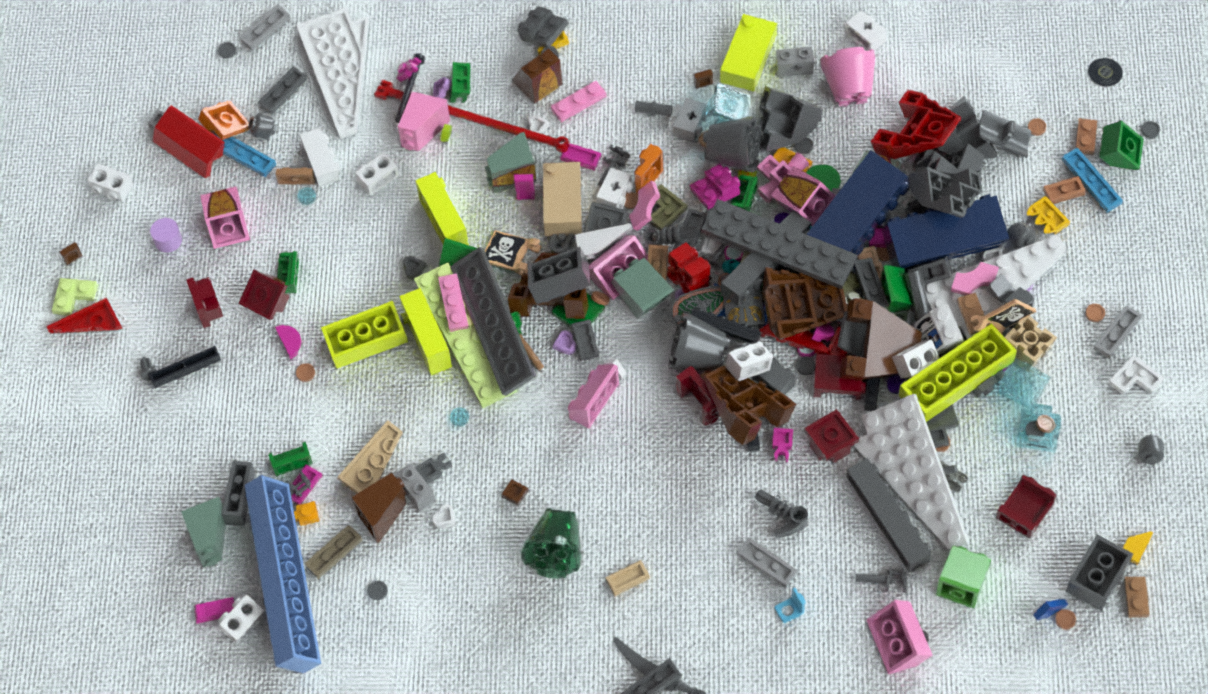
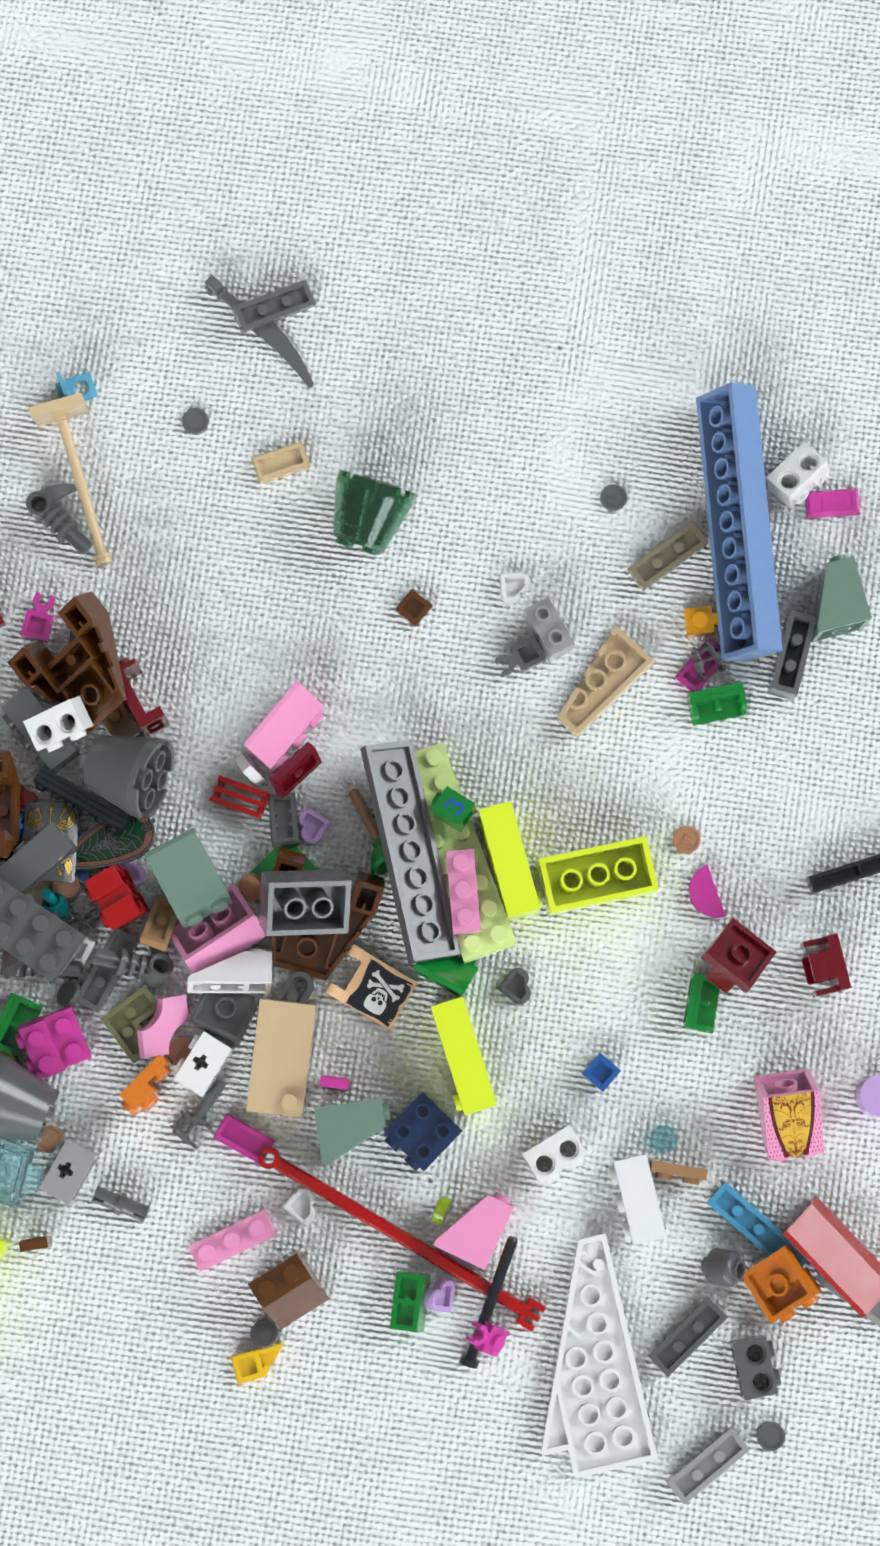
camera: 175 degrees left, 20 degrees up
(239, 83) = (747, 1369): none -> dark grey brick
(350, 224) = (601, 1072): none -> blue plate
(380, 505) = (599, 602): reddish brown slope -> none
(459, 417) = (476, 735): clear light blue piece -> none
(464, 173) = (422, 1132): none -> dark blue brick
(467, 352) = (452, 808): none -> green brick
(542, 27) = (268, 1384): dark grey plate -> none
(587, 363) = (295, 770): none -> dark red plate
(618, 347) = (218, 790): none -> red tile
(697, 599) = (195, 421): none -> dark grey piece
(767, 562) = (97, 454): light grey plate -> none
(801, 577) = (60, 412): none -> tan tile

